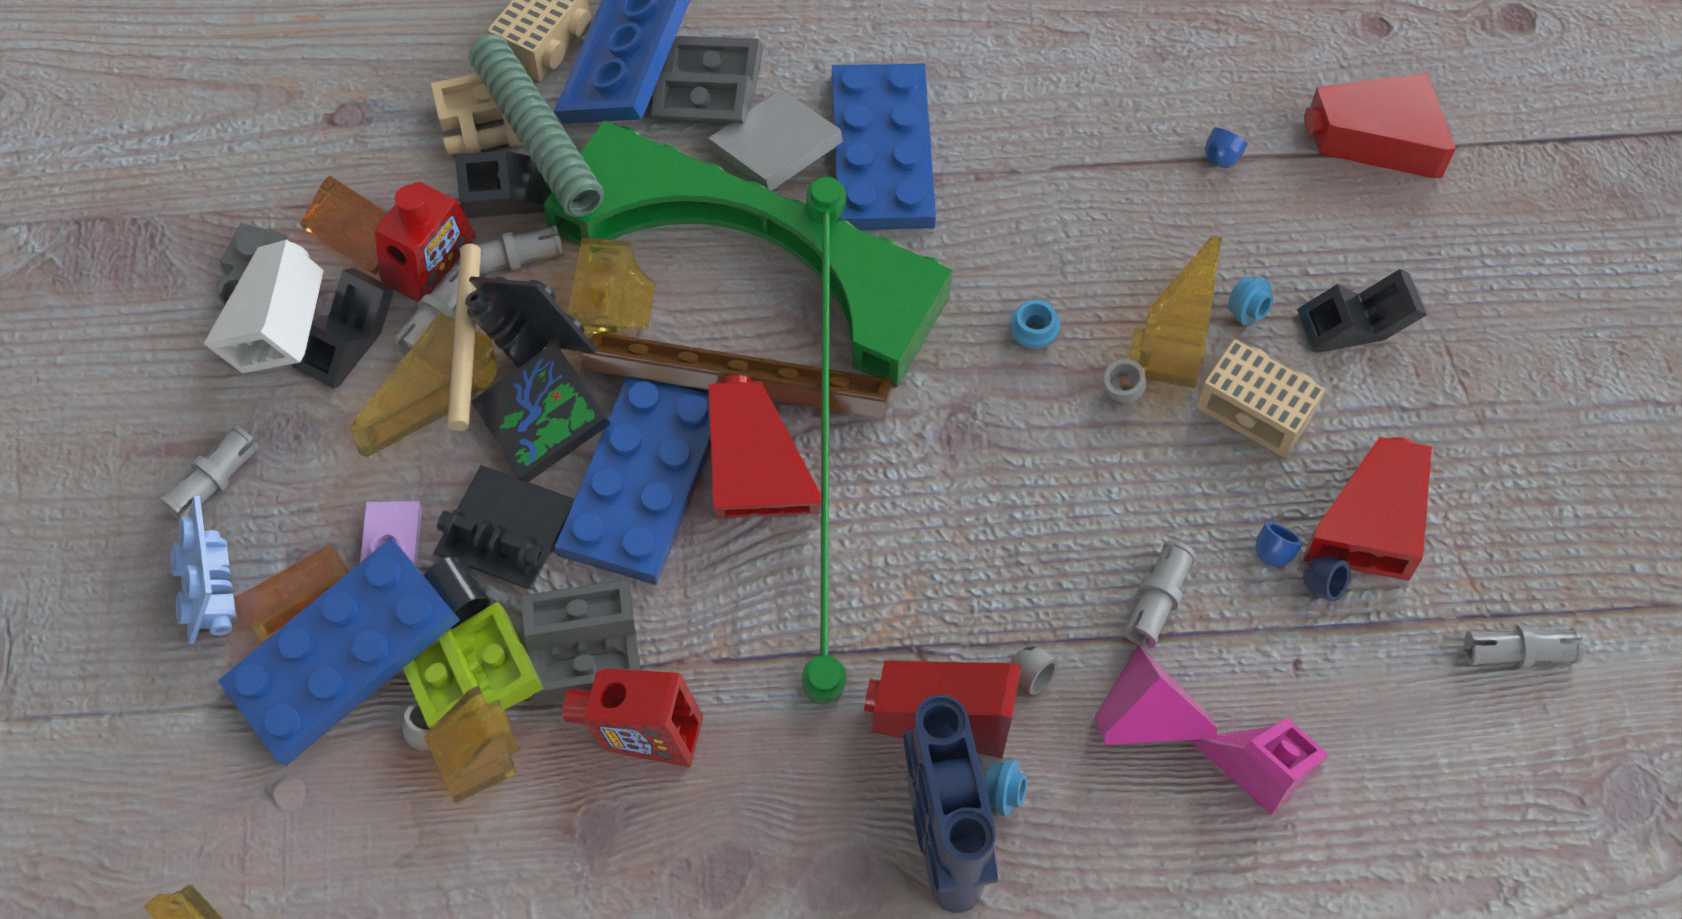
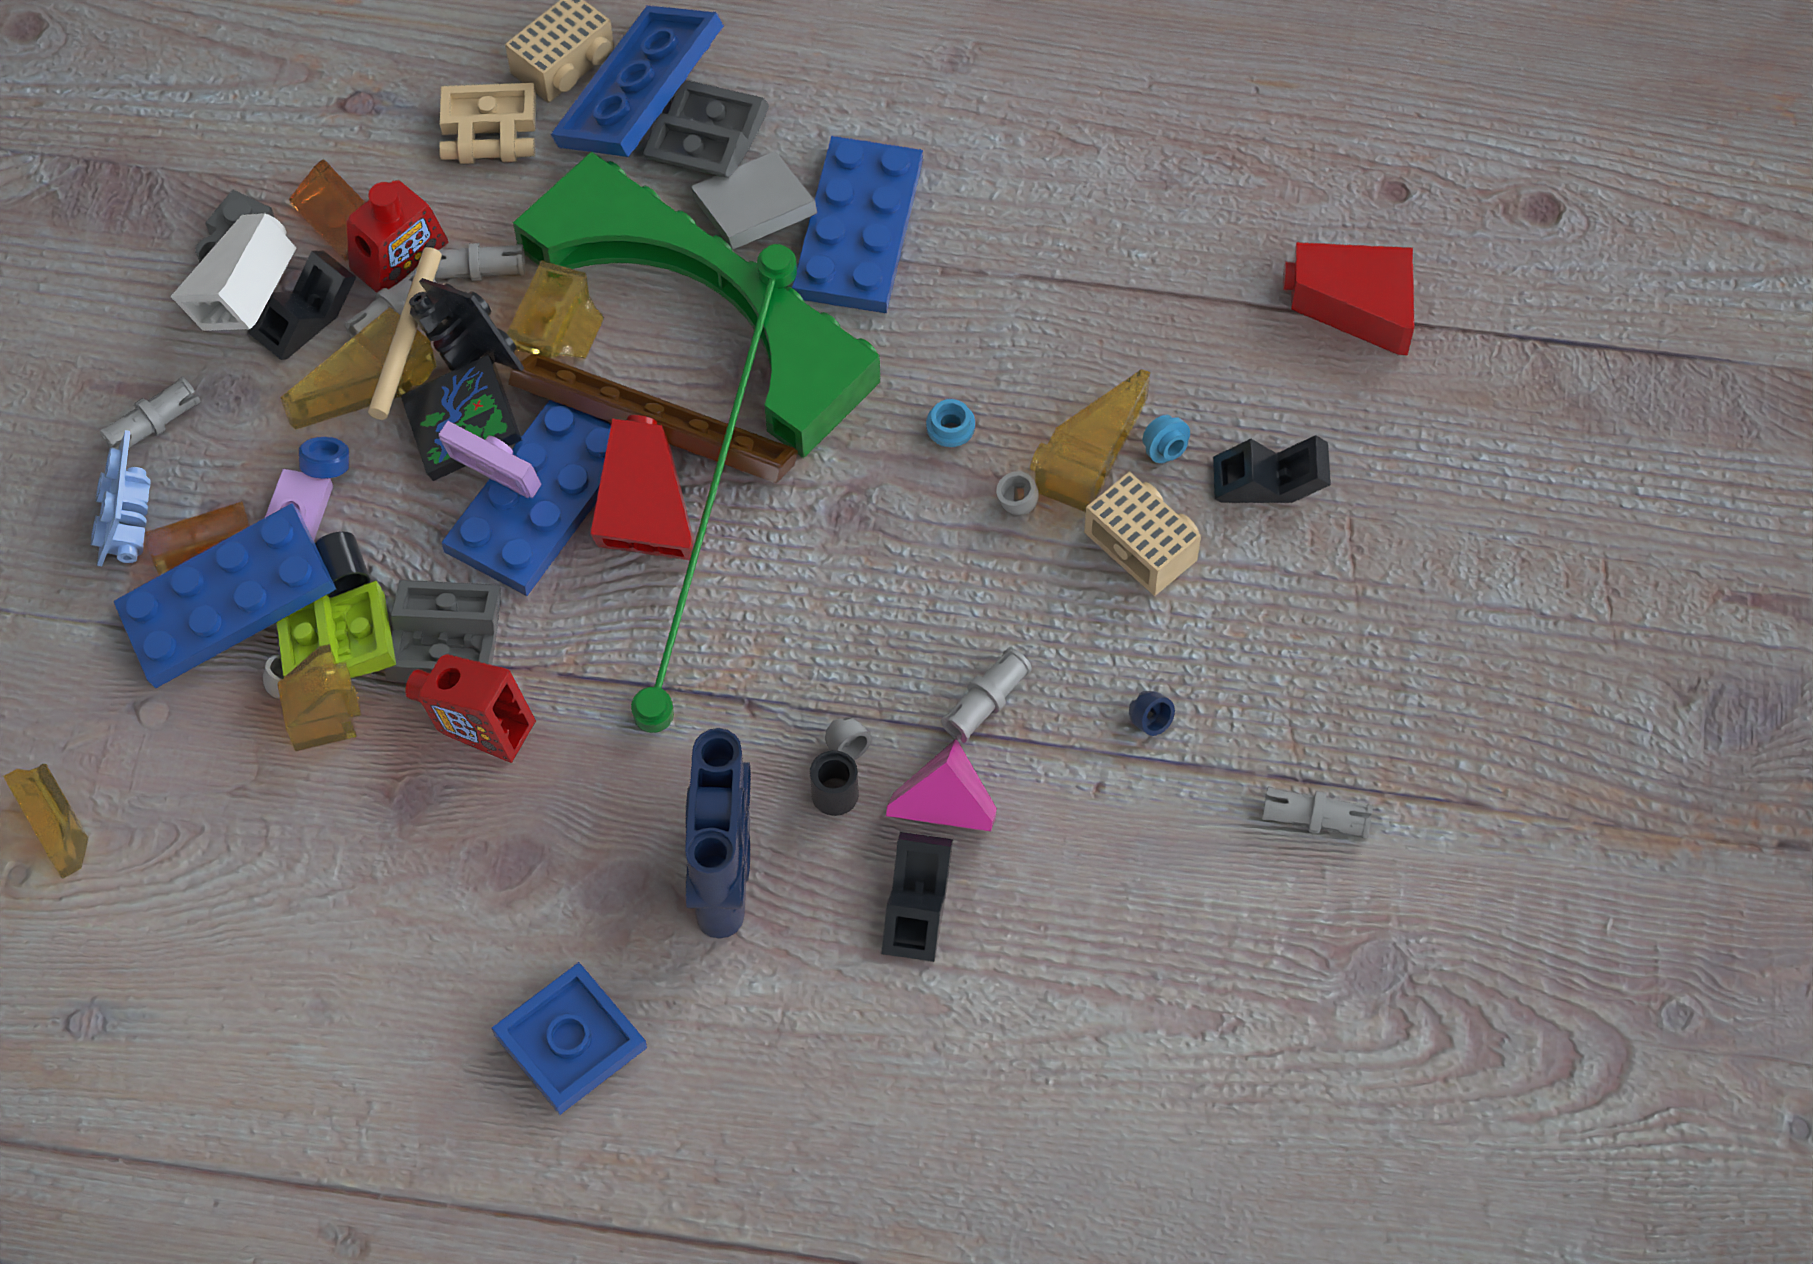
camera: 15 degrees right, 0 degrees up
(407, 481) = (323, 457): none -> blue tile
(499, 184) = (481, 195): black slope -> none
(504, 526) = (400, 515): black hinge -> none
(536, 126) = (523, 145): sand green piece -> none
(589, 449) = (490, 458): none -> lavender plate
(981, 687) = (774, 744): red slope -> none
(1006, 786) = (785, 835): dark azure plate -> none
(1044, 701) = (834, 765): none -> black beam
(1156, 824) = (917, 897): none -> black slope
(1224, 148) = (1191, 287): blue hinge -> none
(1266, 760) = (1040, 864): dark pink slope -> none
(1277, 545) = (1113, 672): blue hinge -> none
(1380, 512) = (1217, 659): red slope -> none

